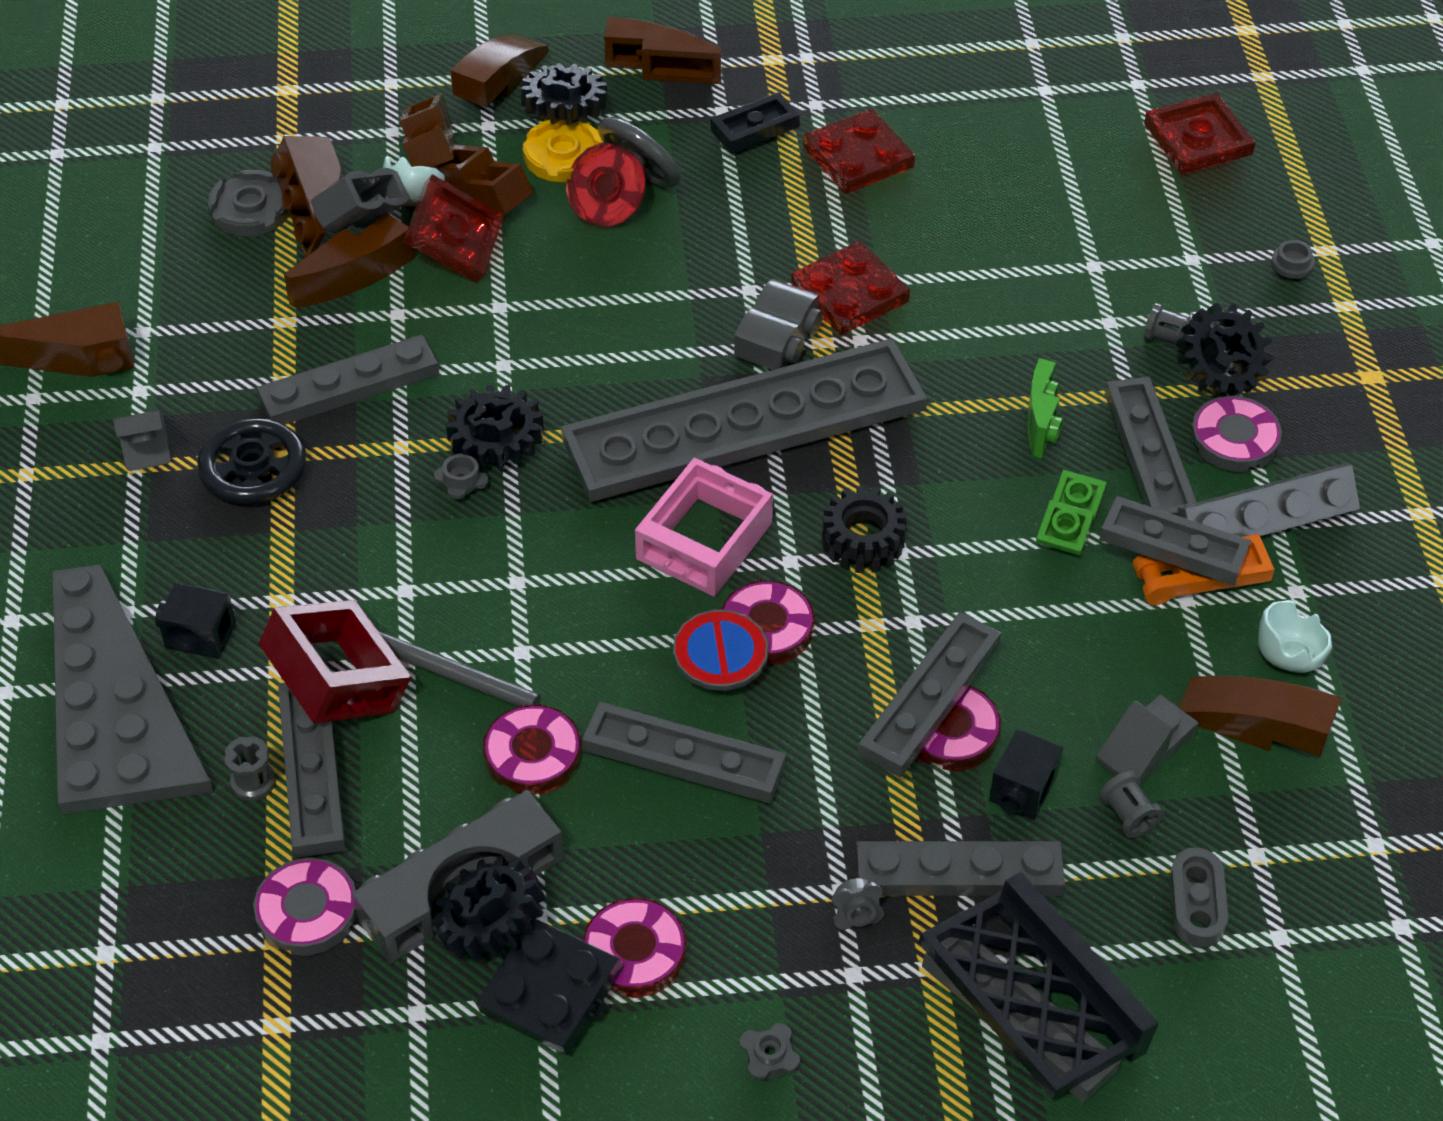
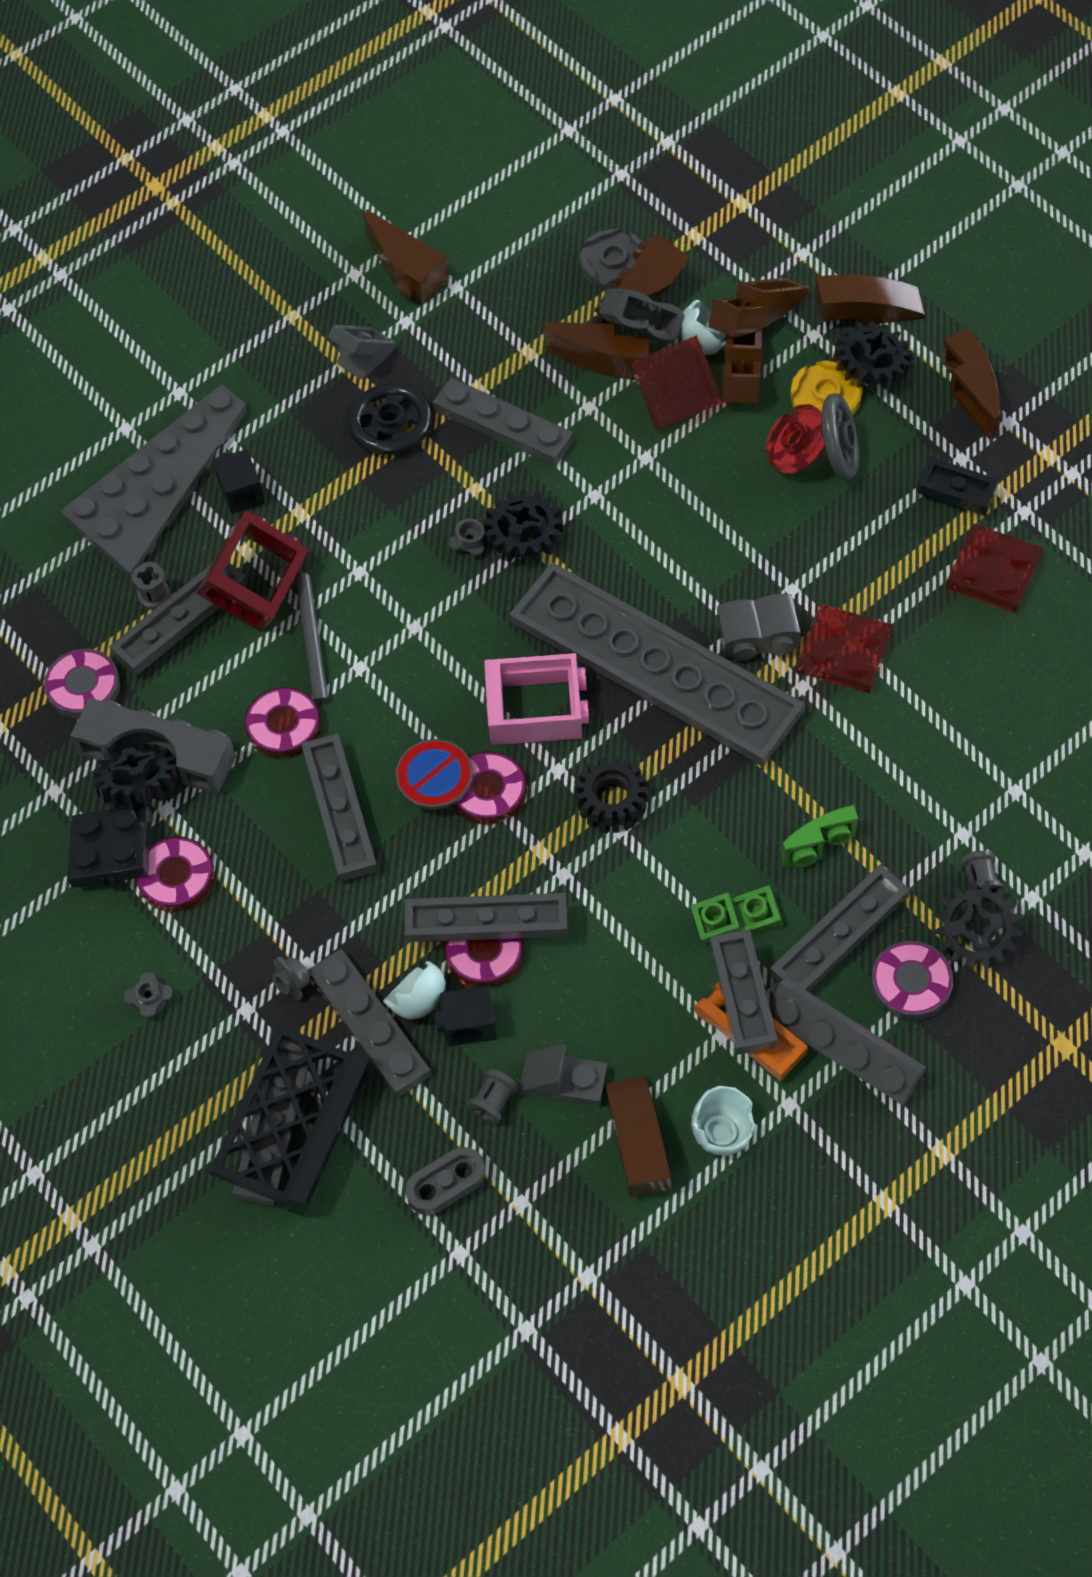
camera: 60 degrees right, 10 degrees up
(966, 800) = (417, 993): none -> light aqua hair

